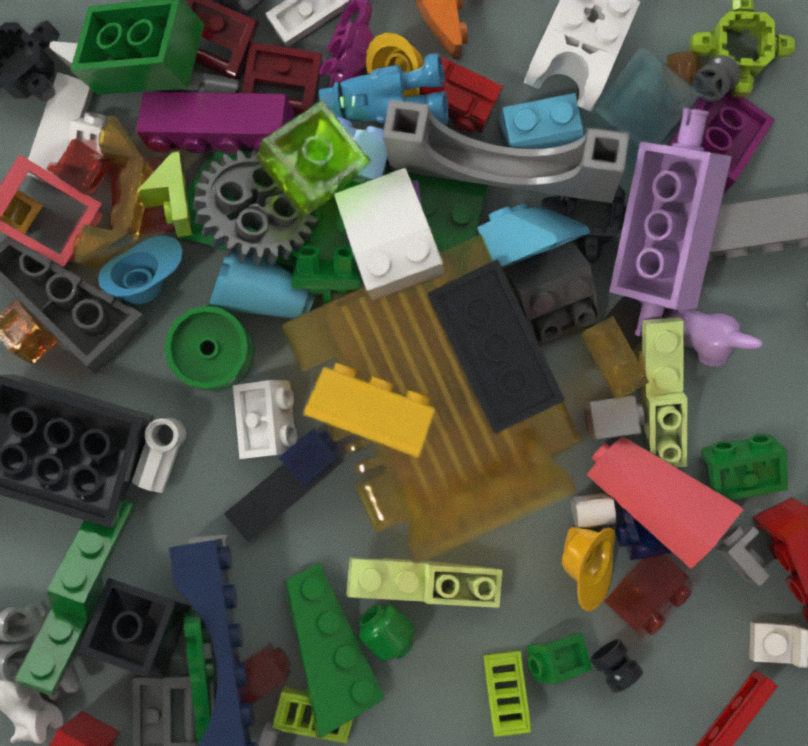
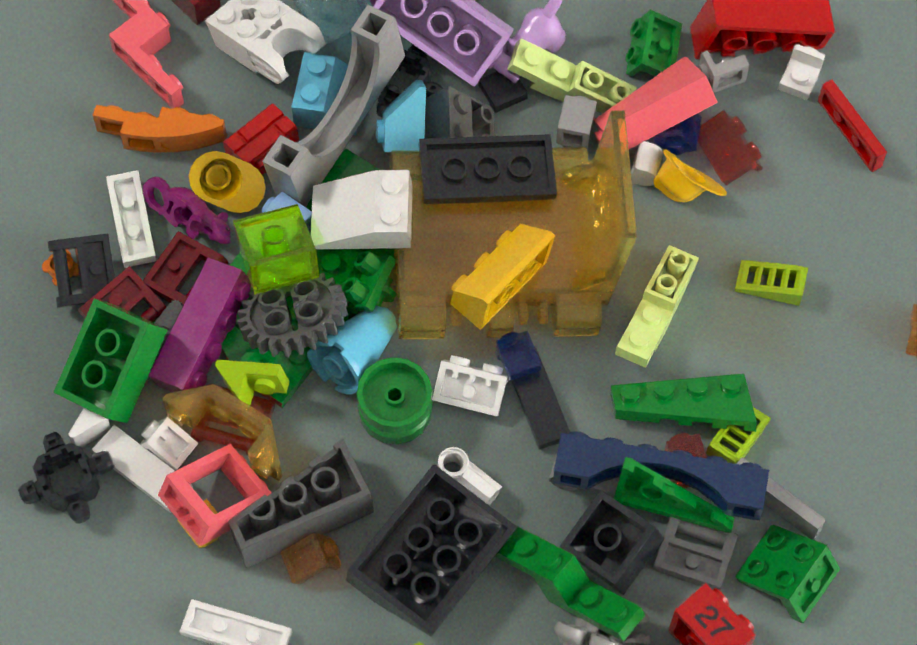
camera: 75 degrees left, 20 degrees down
(81, 167) = (190, 445): clear red panel -> none
(141, 271) = (301, 430): dark azure piece -> none
(368, 95) = (239, 188): dark azure piece -> none
(386, 632) = (688, 350): green head -> none
(559, 659) = (757, 233): green bracket -> none
(614, 357) = (528, 103): clear yellow bracket -> none
(616, 665) = (777, 190): black wheel -> none

